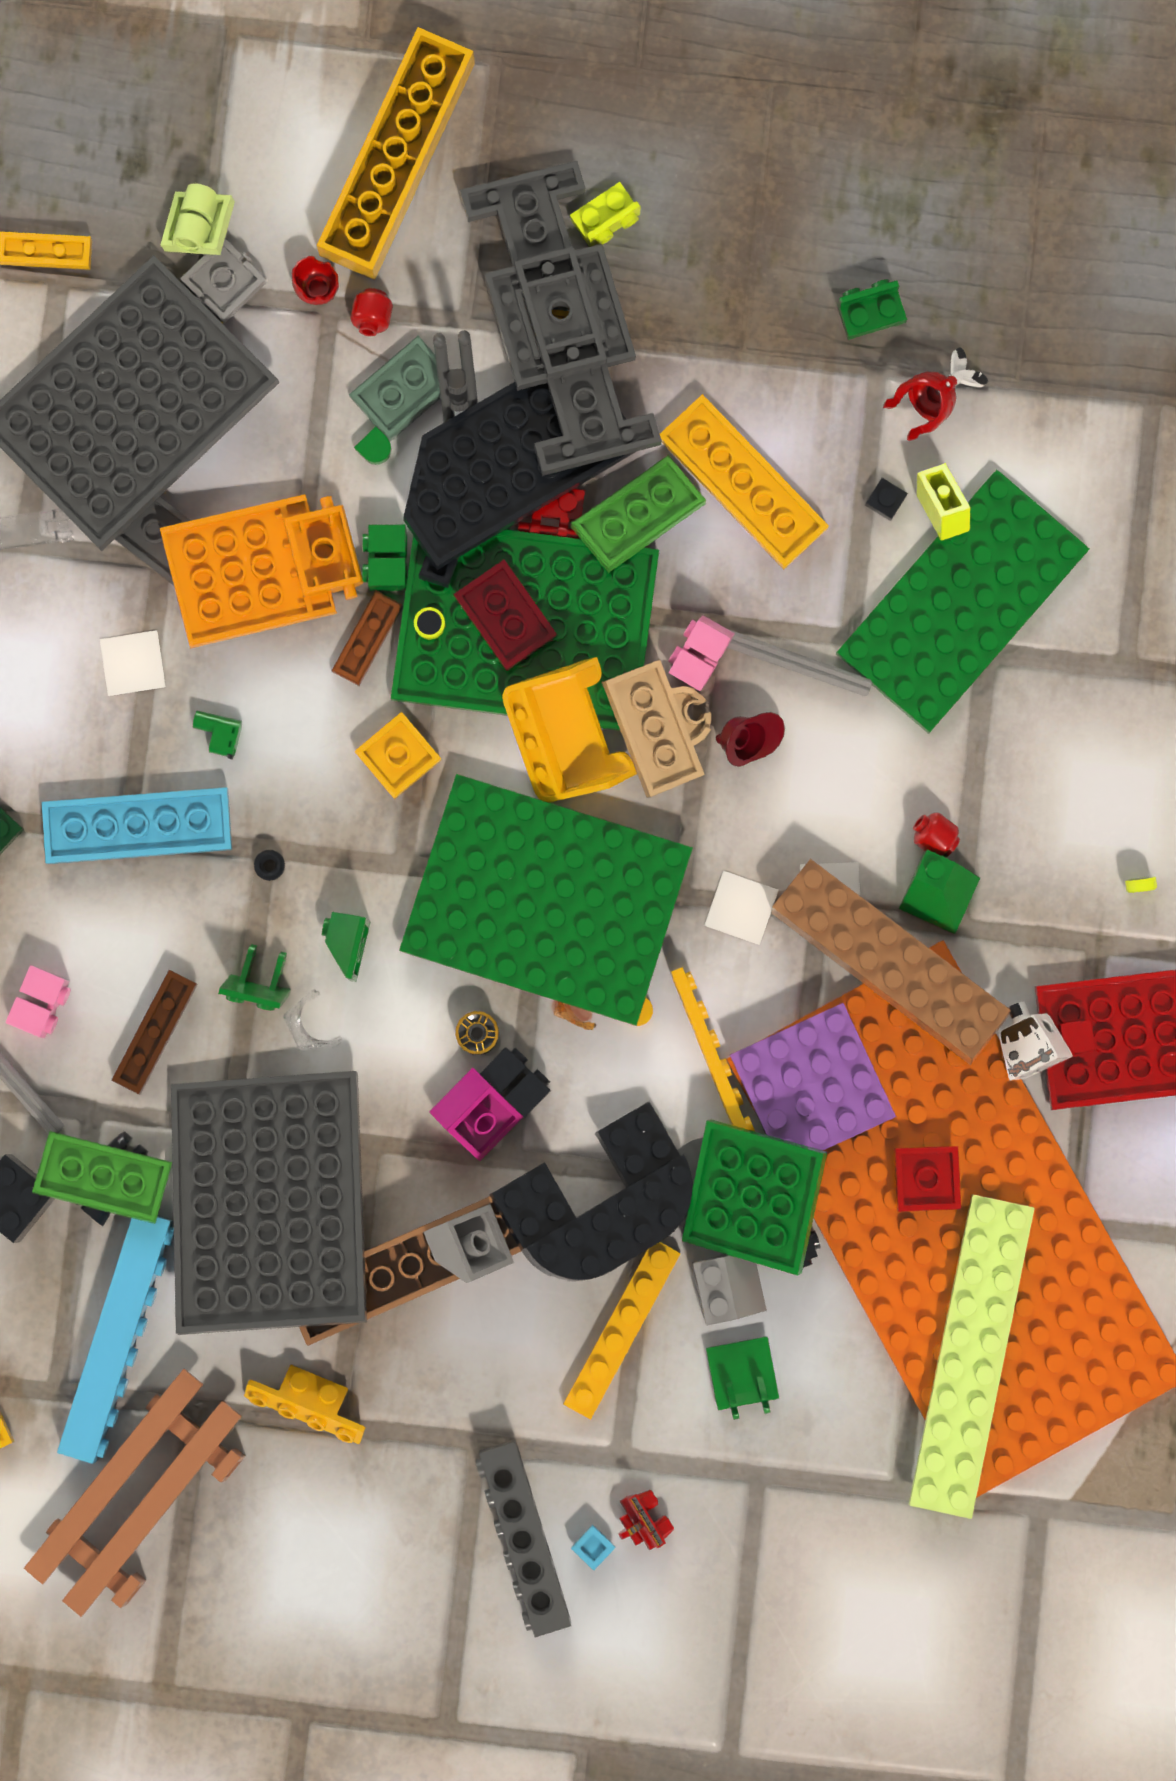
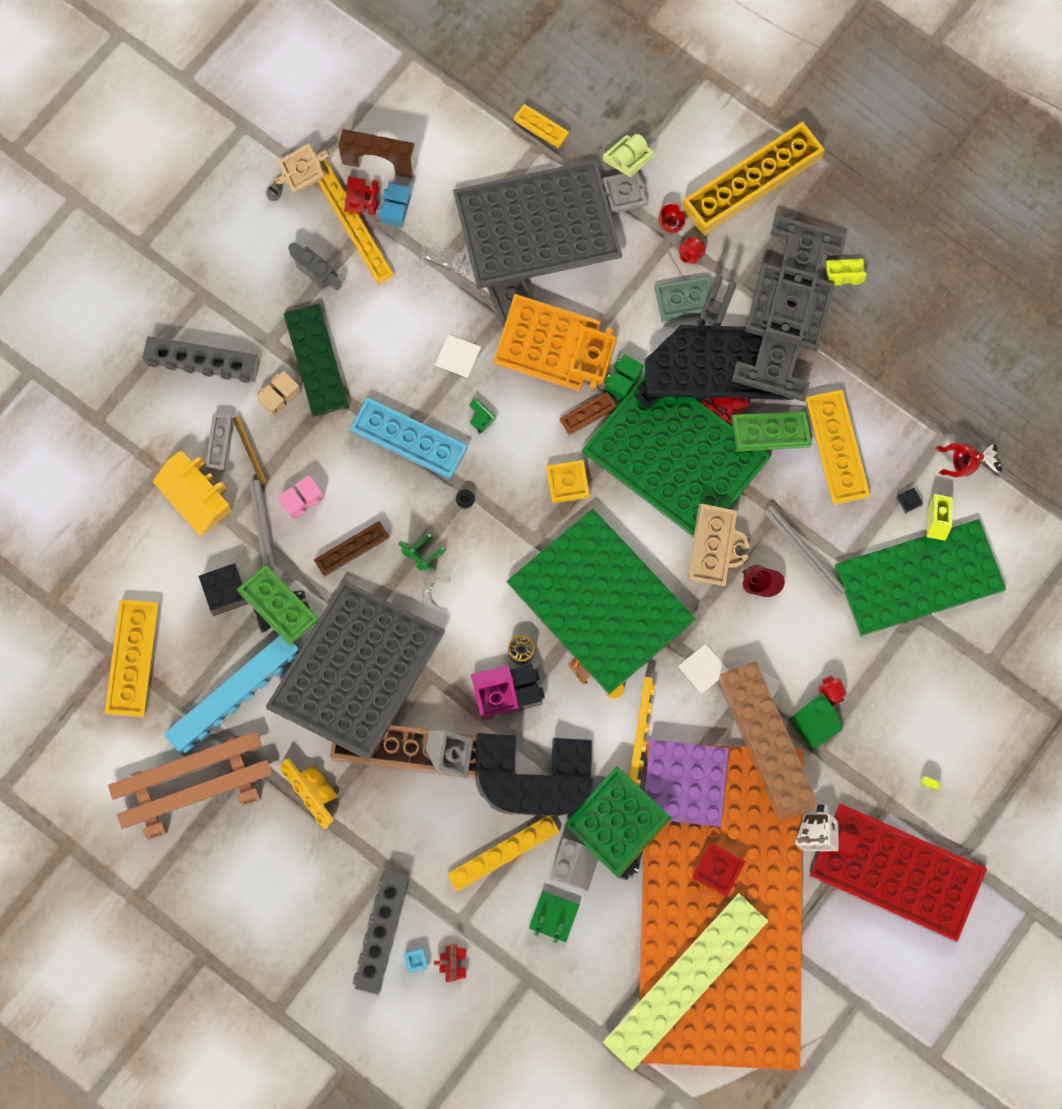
camera: 30 degrees right, 10 degrees down
(346, 941) = (482, 560): green slope -> none
(374, 447) = (651, 319): green tile -> none
(429, 623) = (625, 422): black tile -> none
(505, 615) = (668, 441): dark red plate -> none
(562, 733) = (662, 518): yellow windscreen -> none
(700, 653) = (769, 515): bright pink piece -> none
(871, 309) = (959, 398): green bracket -> none

